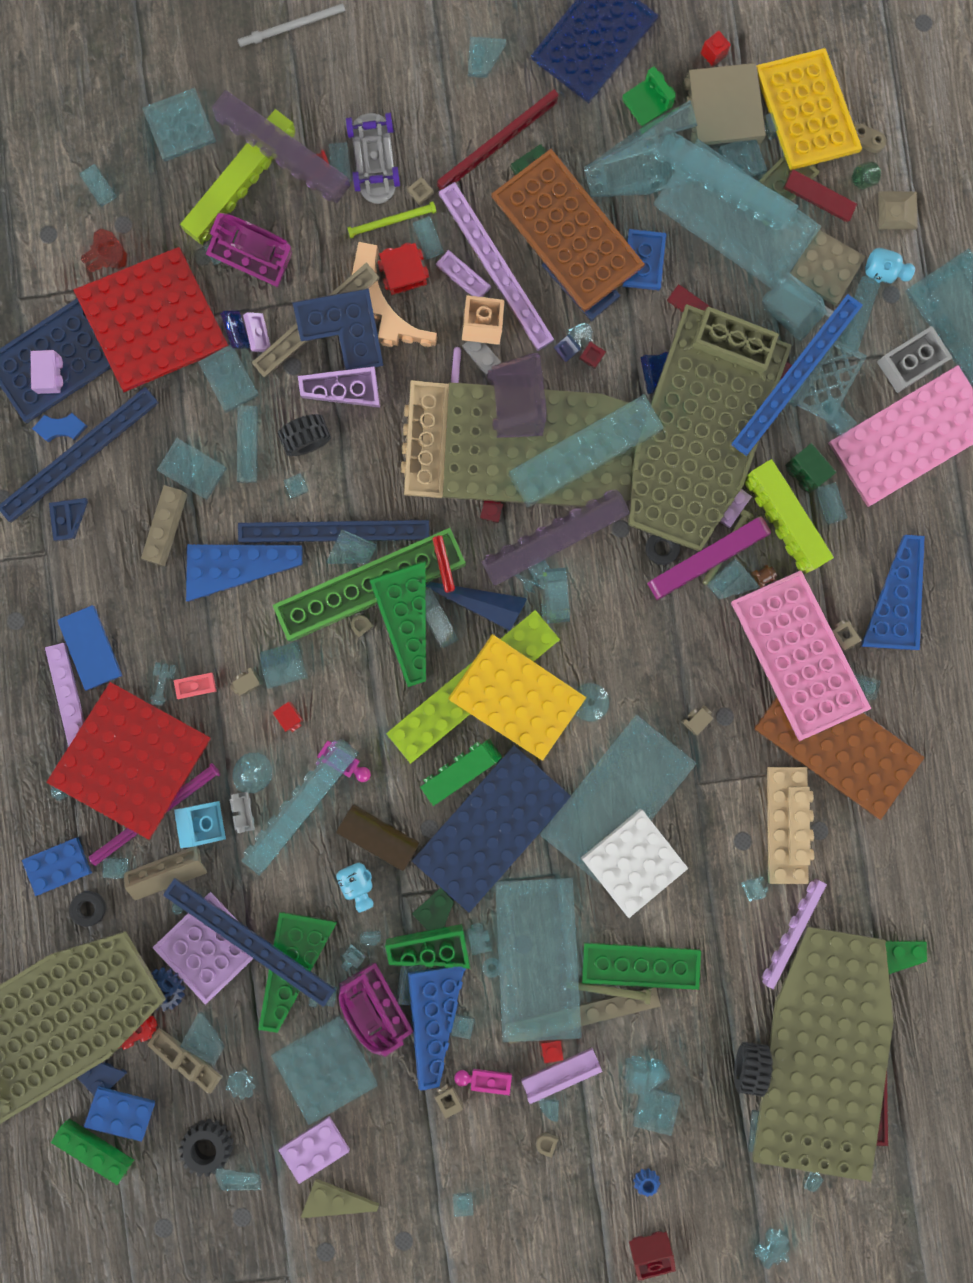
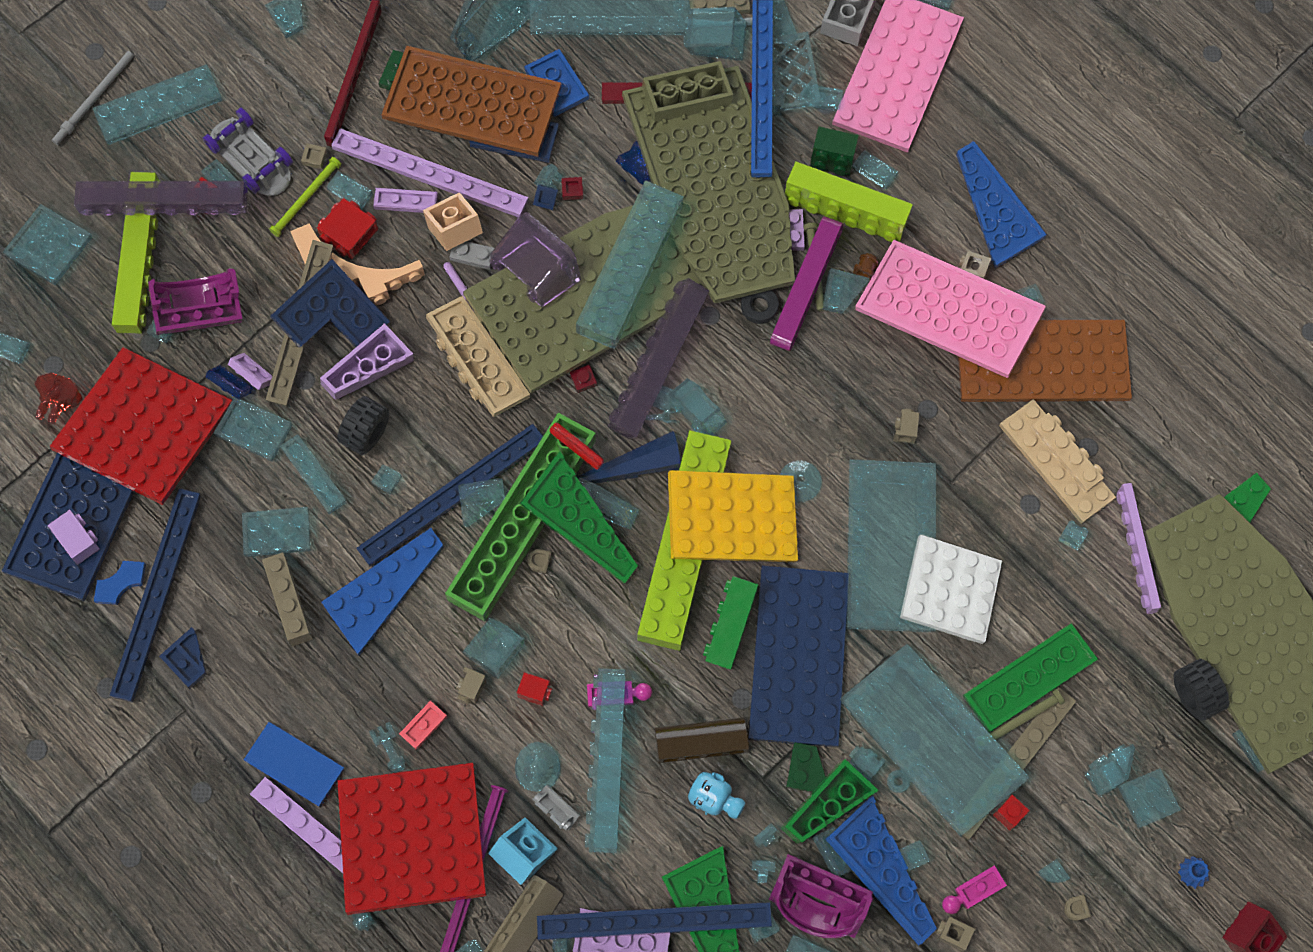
camera: 35 degrees left, 15 degrees down
(335, 64) = (157, 104): none -> clear light blue plate
(561, 1075) = (1038, 832): lavender fence -> none

